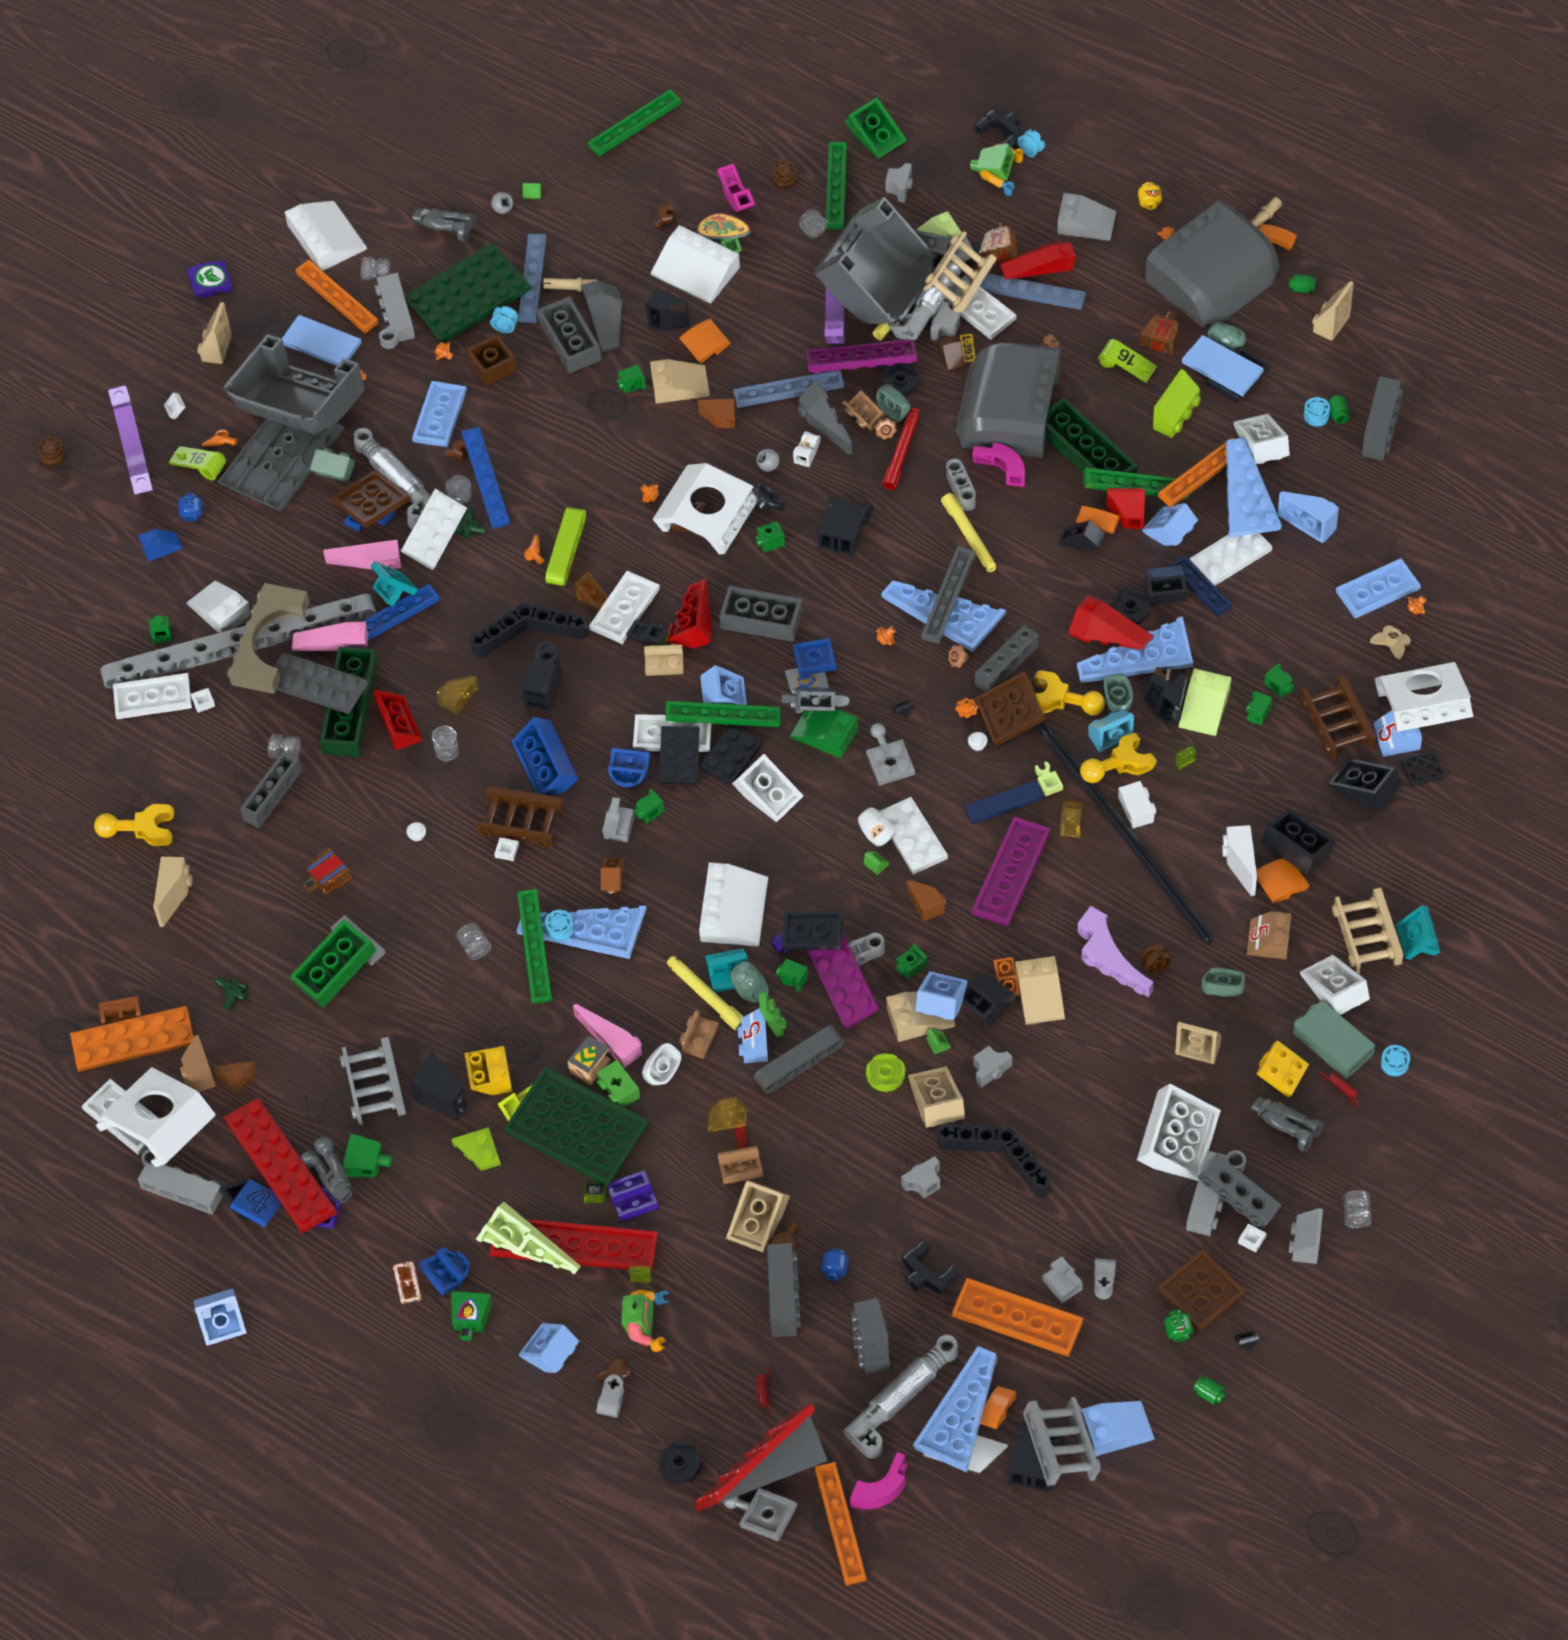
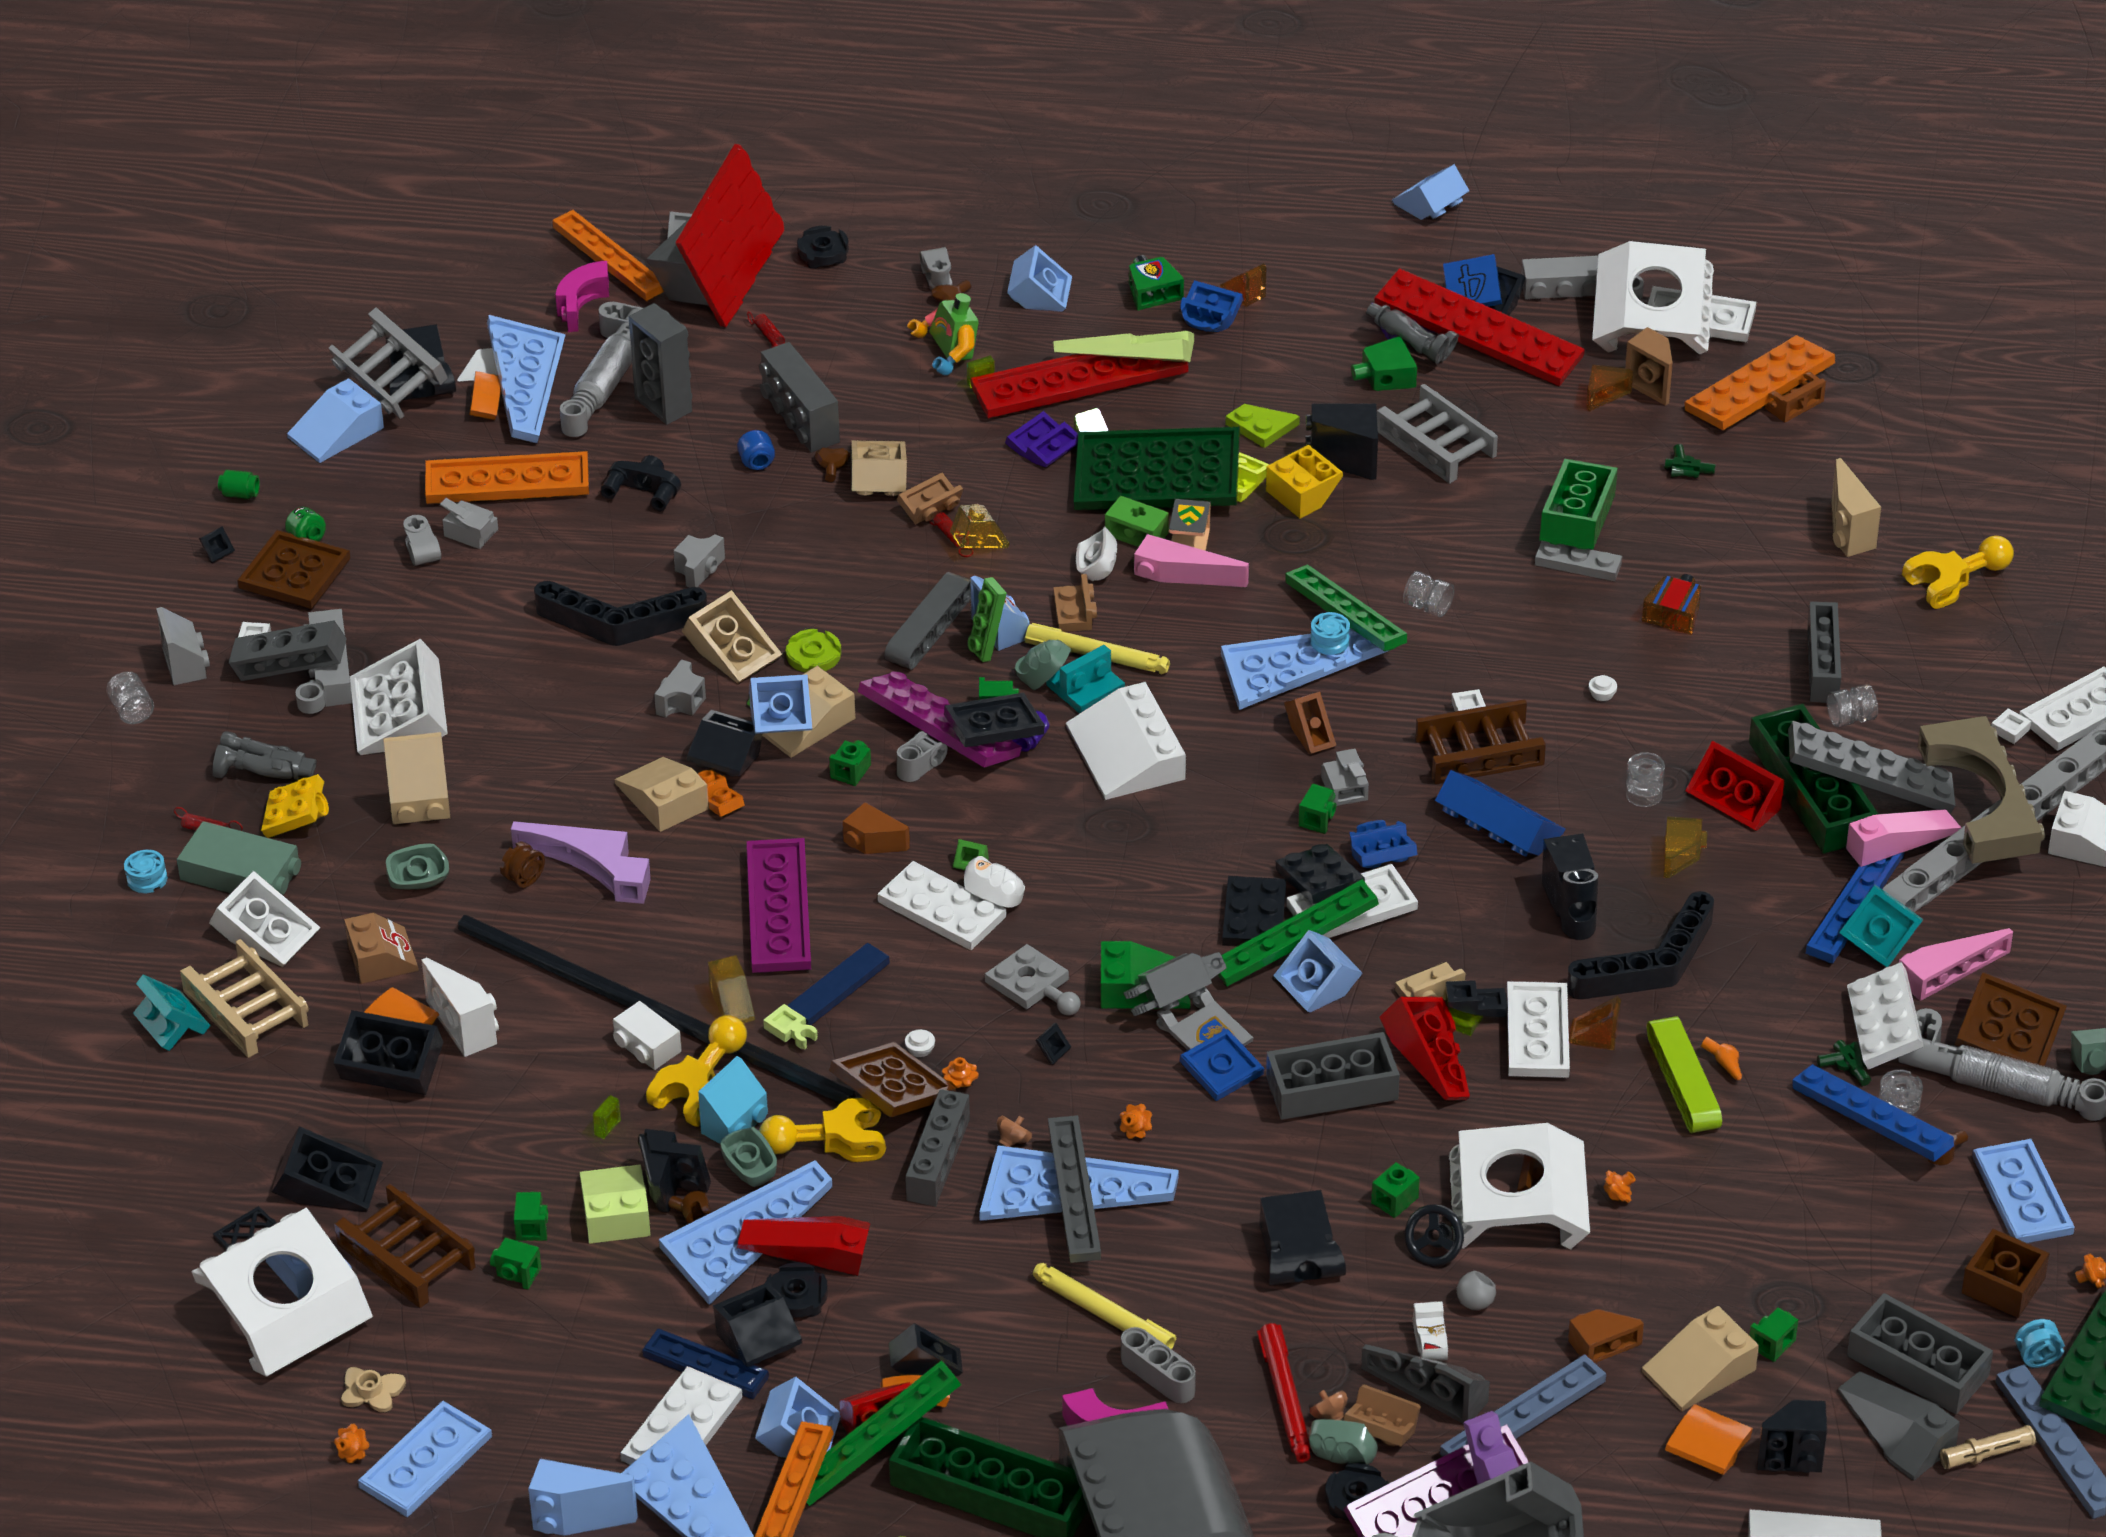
camera: 150 degrees right, 15 degrees down
(767, 788) = (1176, 881): white slope -> none

